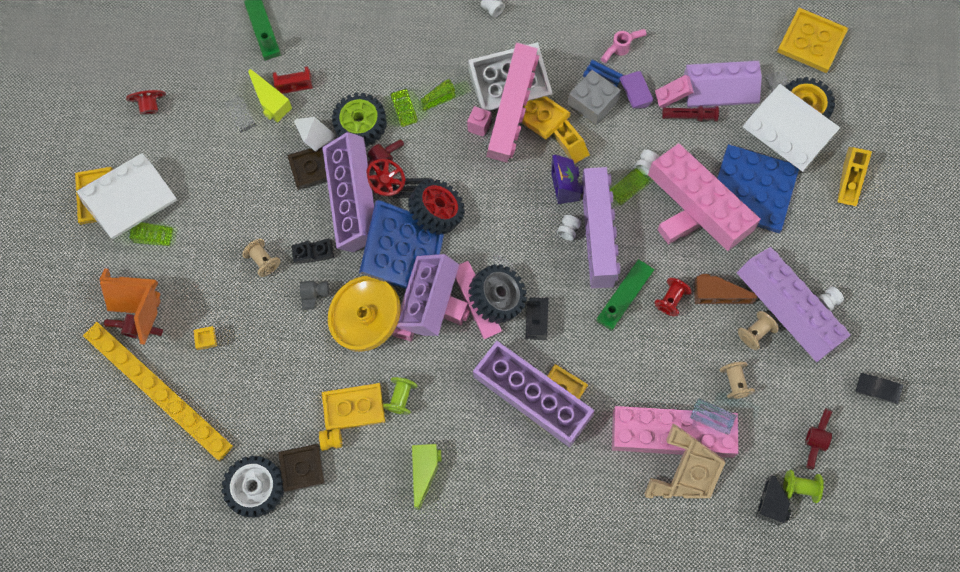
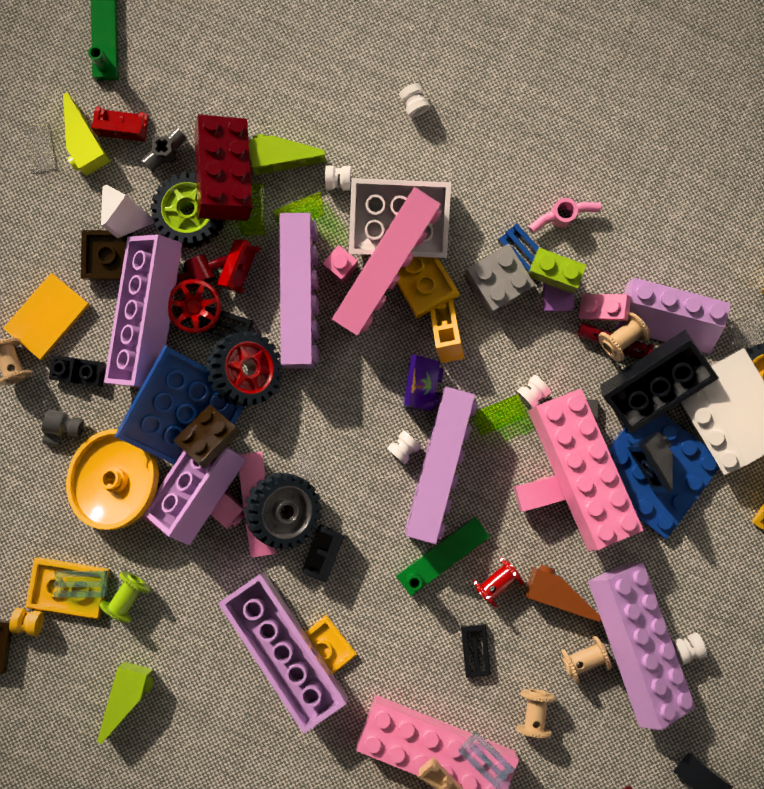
camera: 10 degrees right, 15 degrees up
(279, 221) = (46, 316): none -> yellow tile
(329, 86) = (171, 142): none -> dark grey axle
(359, 390) = (59, 583): none -> clear light blue tile
(376, 82) = (222, 168): none -> dark red brick
(406, 144) = (237, 266): none -> red hinge
(411, 65) = (277, 154): none -> lime slope
(426, 254) = (207, 436): none -> dark brown plate
(453, 68) = (332, 177): none -> white wheel
(457, 146) = (297, 289): none -> lavender brick
(632, 76) = (556, 270): none -> lime brick
(668, 357) = (473, 628): none -> black tile
(691, 110) = (624, 337): none -> tan hose
(731, 123) = (658, 381): none -> black slope
(748, 176) = (654, 460): none -> black slope

